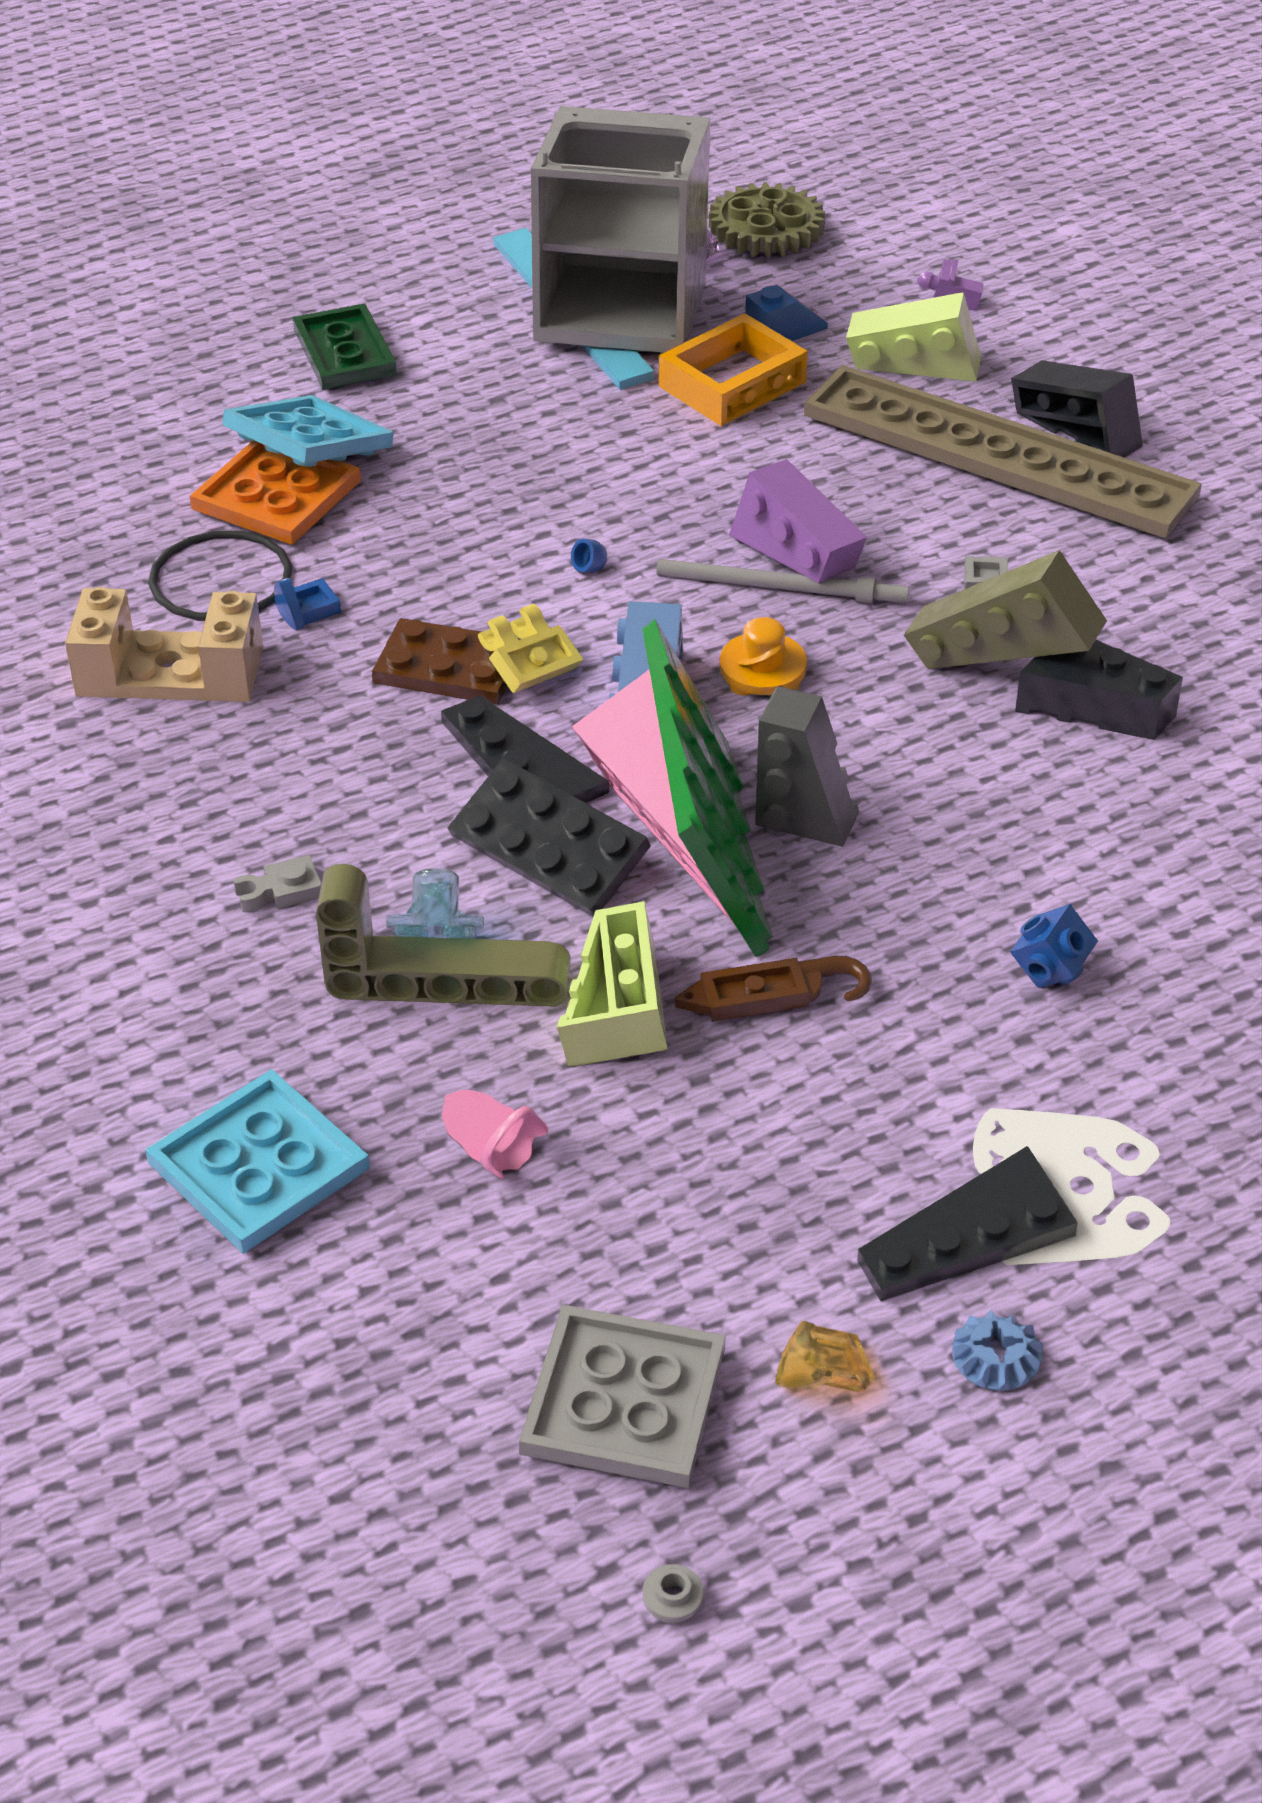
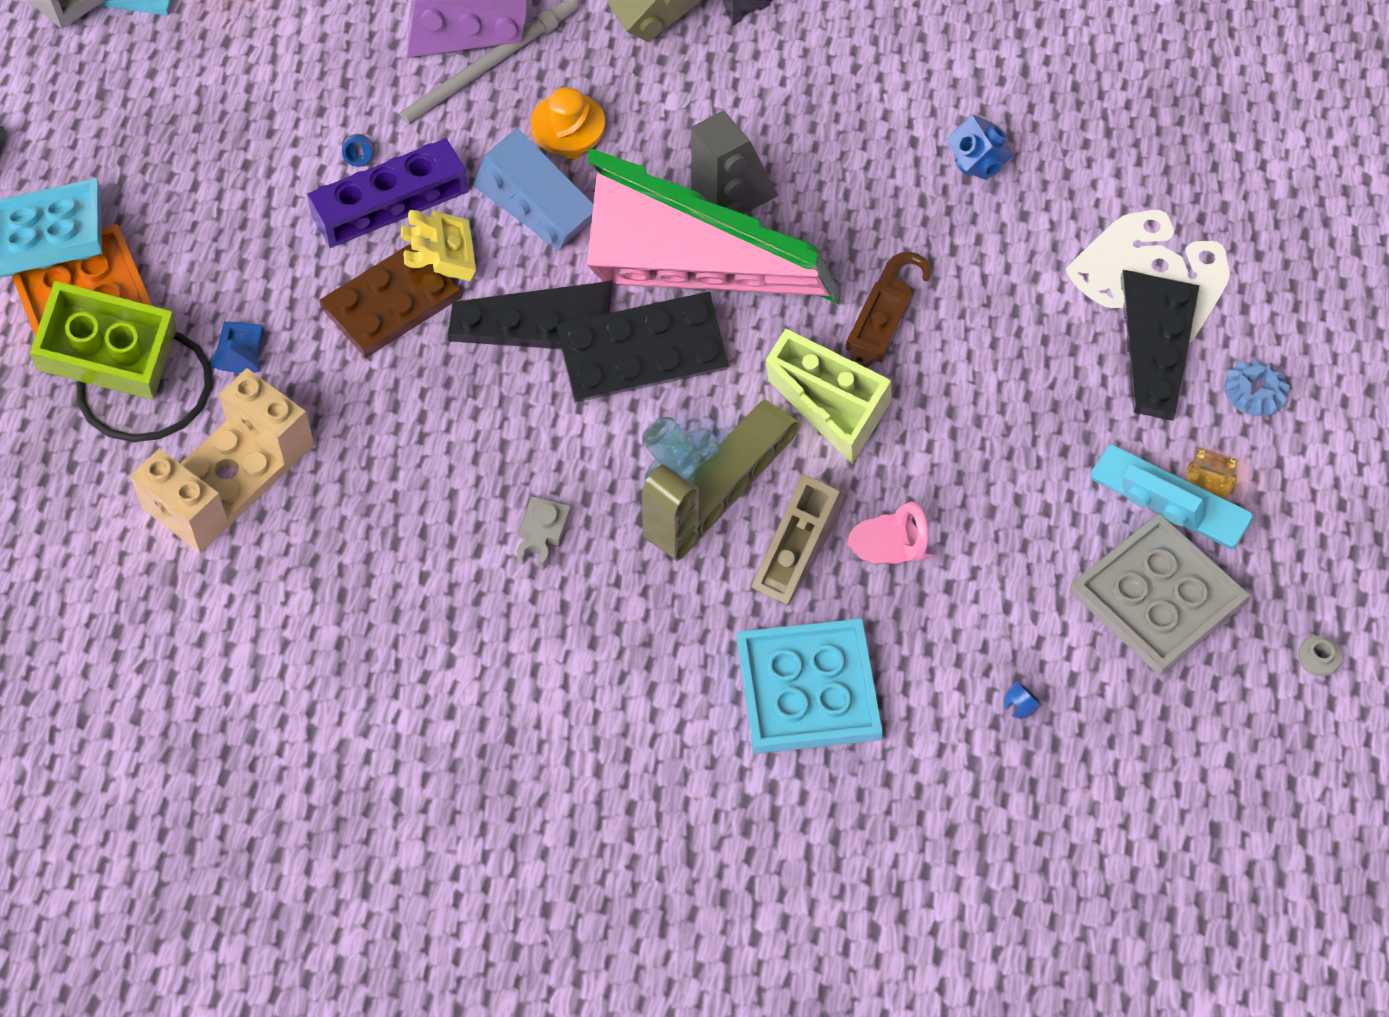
camera: 55 degrees left, 15 degrees up
(218, 512) = (103, 340): none -> lime brick
(383, 1342) = (1023, 699): none -> blue hinge
(432, 1059) = (798, 538): none -> dark tan slope
(565, 594) = (388, 192): none -> dark purple brick
(753, 1335) = (1172, 497): none -> medium azure bracket

